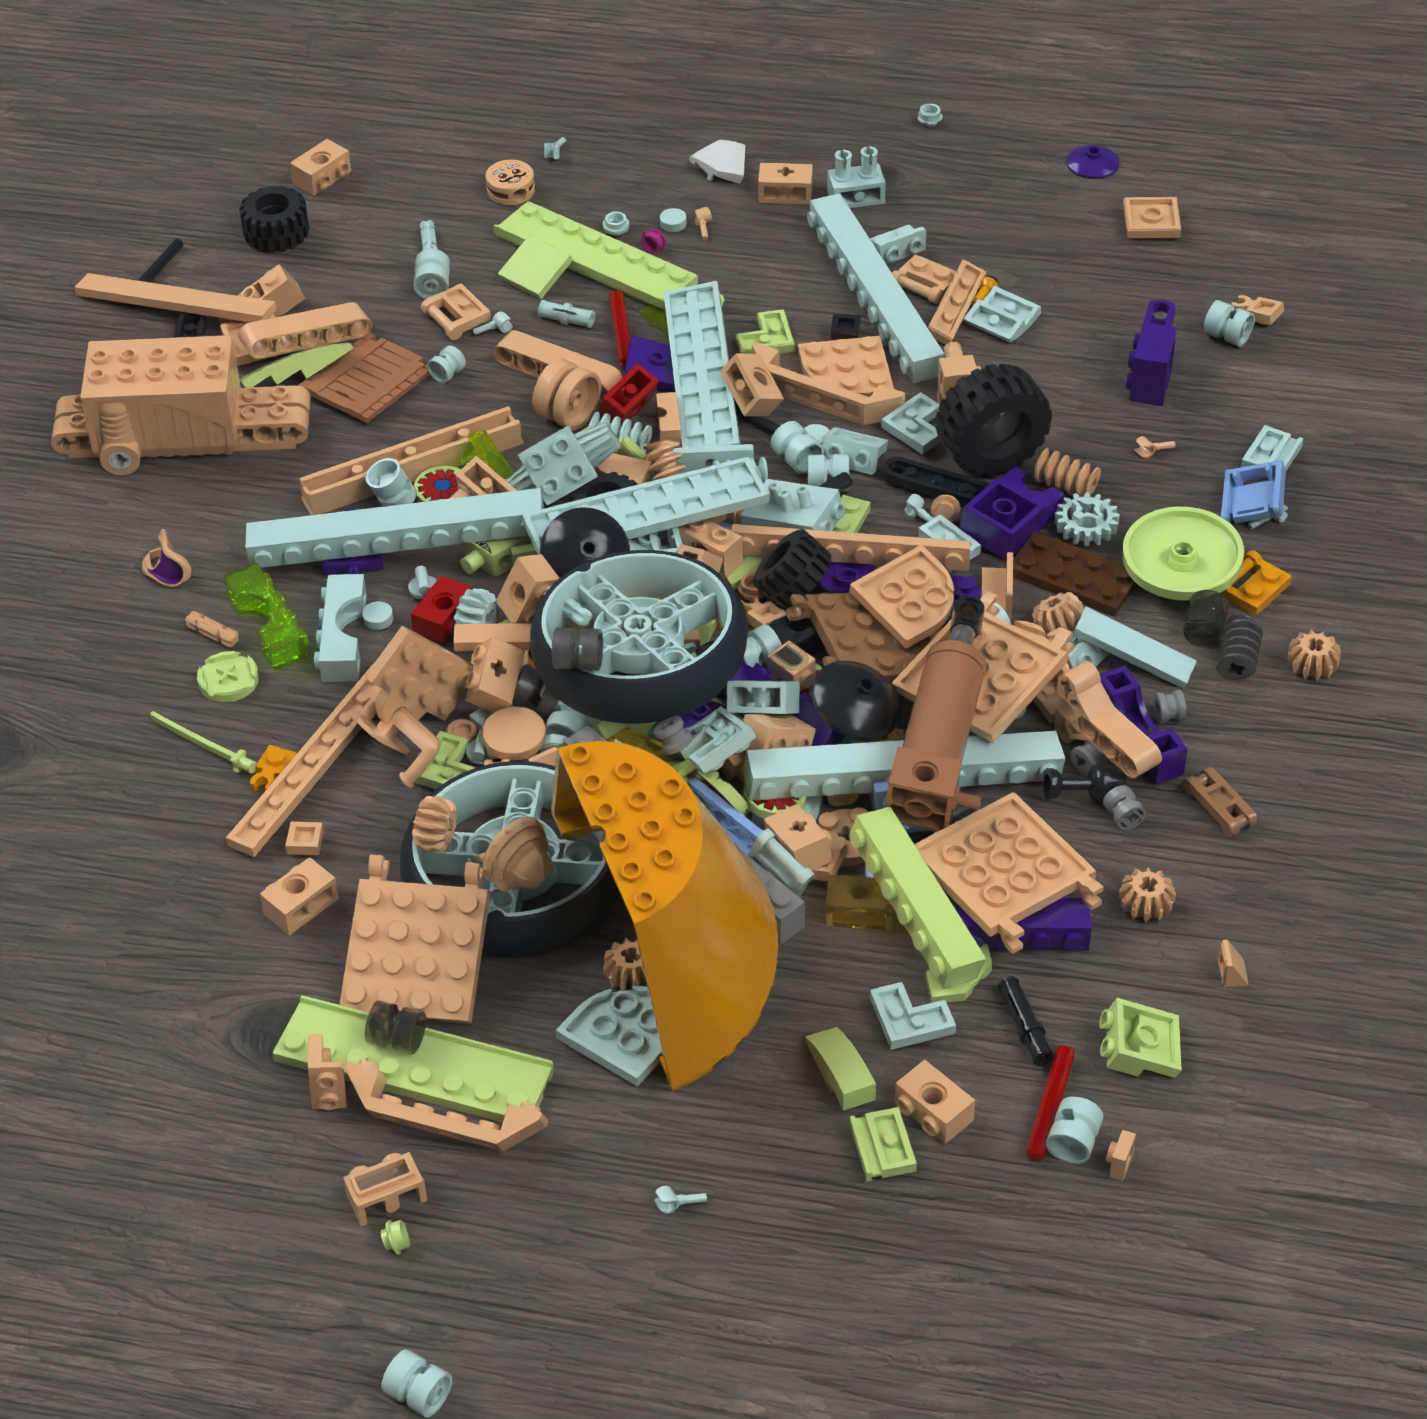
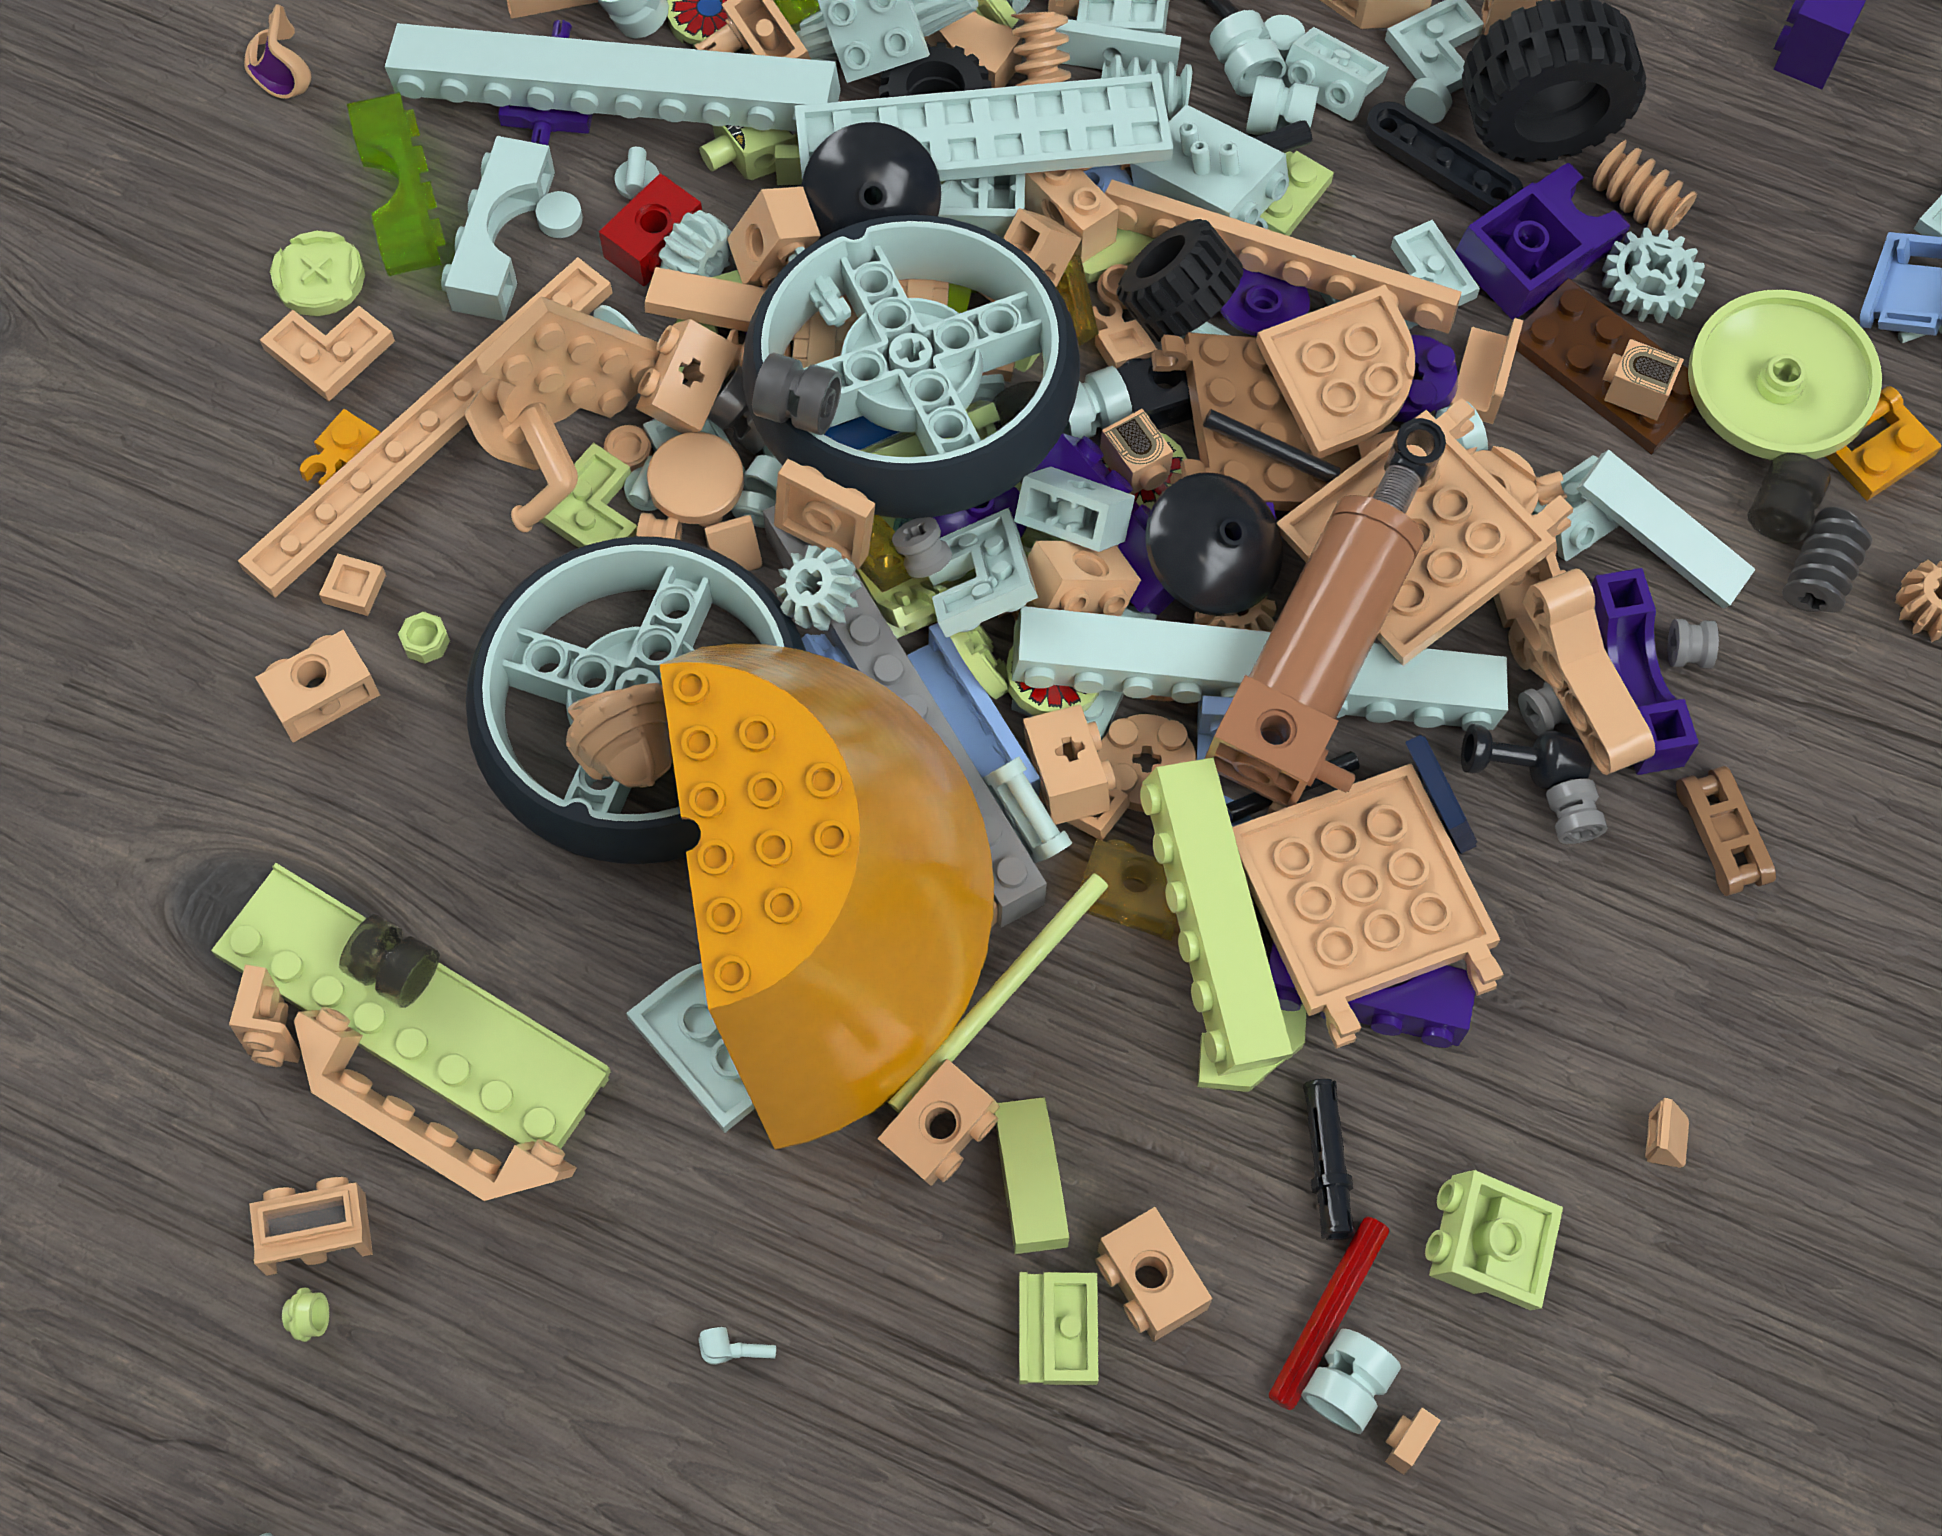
camera: 10 degrees right, 20 degrees up
(212, 629) = (315, 186): light nougat axle -> none
(237, 759) = (293, 424): yellowish green sword -> none
(250, 720) = (328, 360): none -> light nougat plate
(357, 857) = (424, 637): none -> yellowish green tile
(416, 944) = (452, 830): light nougat plate -> none
(434, 824) = (518, 641): light nougat gear -> none
(606, 719) = (823, 512): none -> light nougat plate
(775, 1029) = (945, 1092): none -> light nougat brick
(791, 969) = (1003, 987): none -> yellowish green piece
(874, 643) = (1271, 446): none -> black bar
(908, 1024) = (1147, 1122): light aqua plate -> none
(914, 508) = (1397, 196): light aqua hand -> none
(919, 451) = (1428, 99): none -> light aqua tile
(946, 506) = (1445, 208): light nougat plate -> none
(1036, 802) = (1441, 793): none -> dark blue plate
(1057, 612) = (1564, 443): light nougat gear -> none
(1095, 569) = (1641, 378): none -> light nougat brick
(1147, 448) = (1778, 163): light nougat hand -> none
(1147, 894) = (1577, 961): light nougat gear -> none

